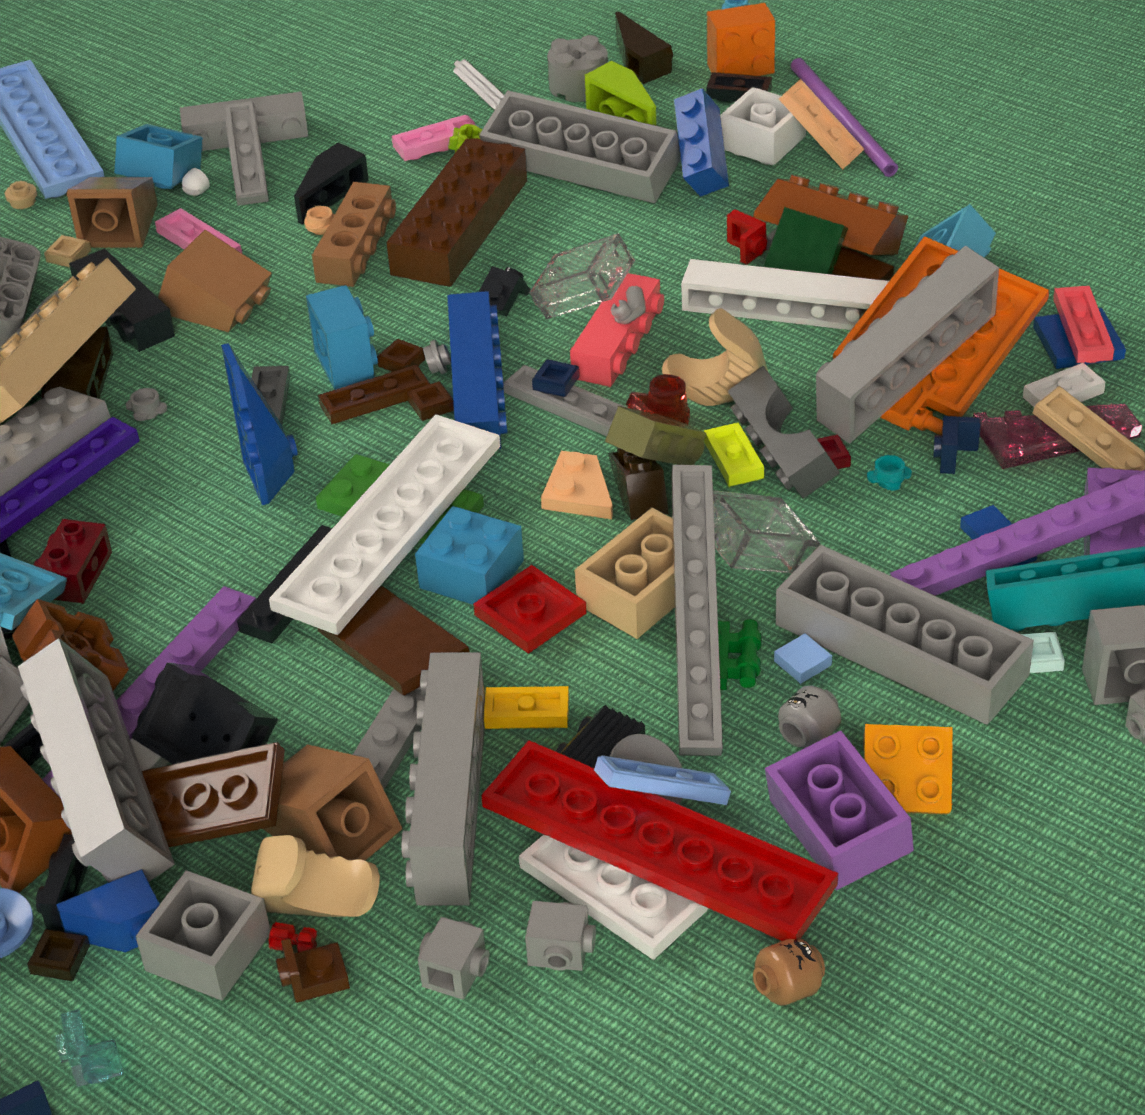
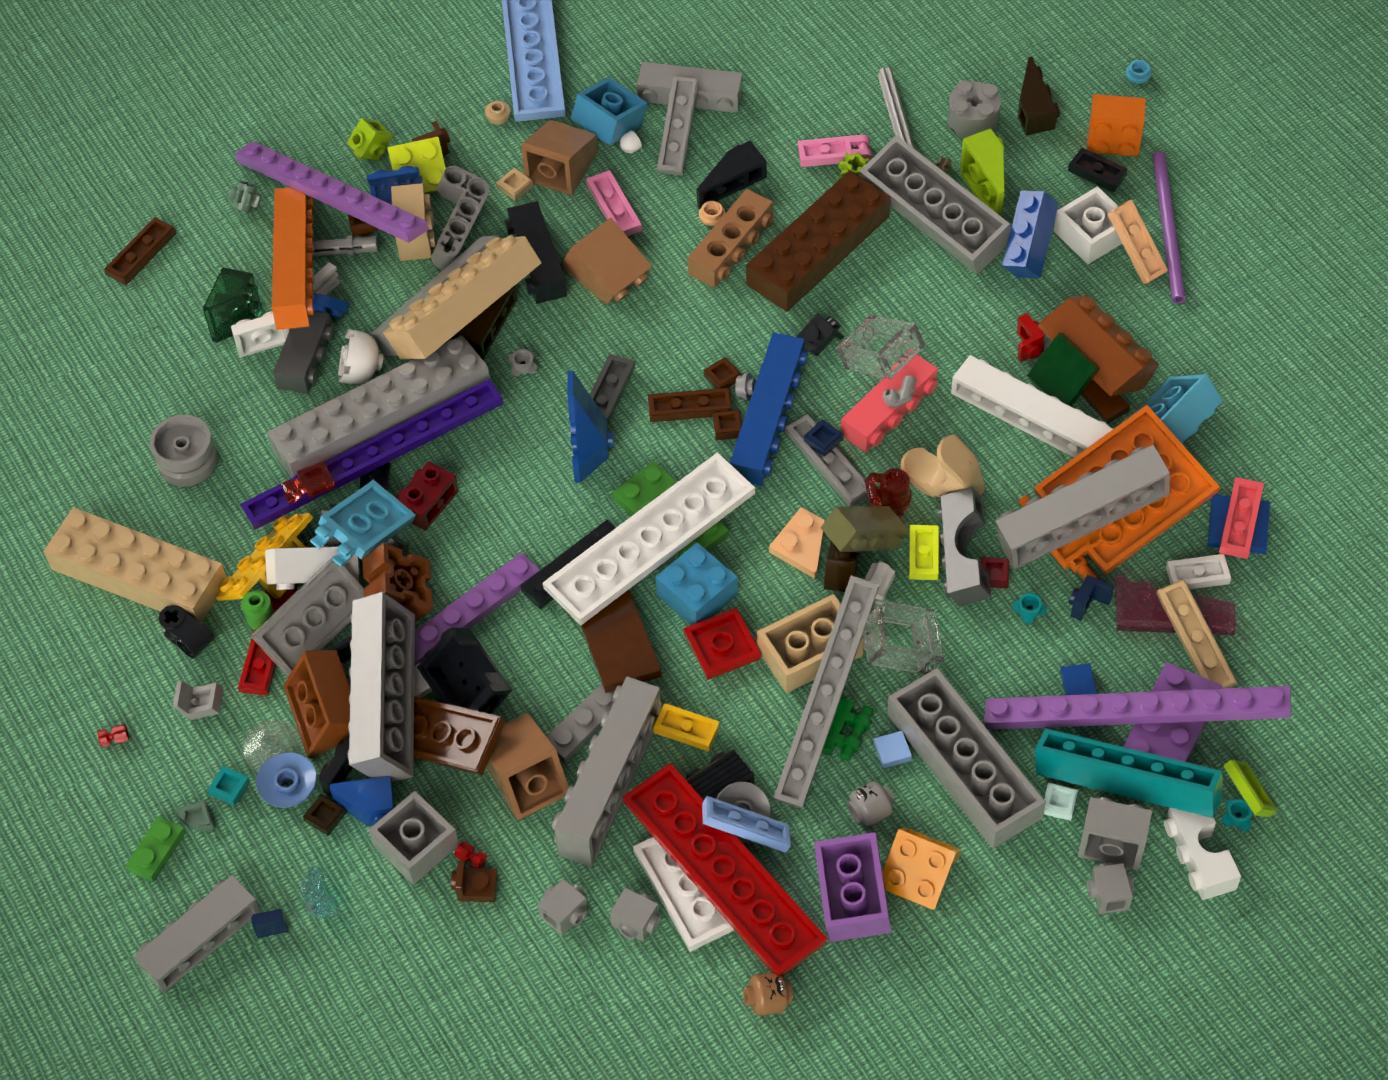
camera: 20 degrees right, 15 degrees up
(310, 882) = (493, 823): tan animal -> none
(341, 336) = (680, 350): dark azure brick -> none

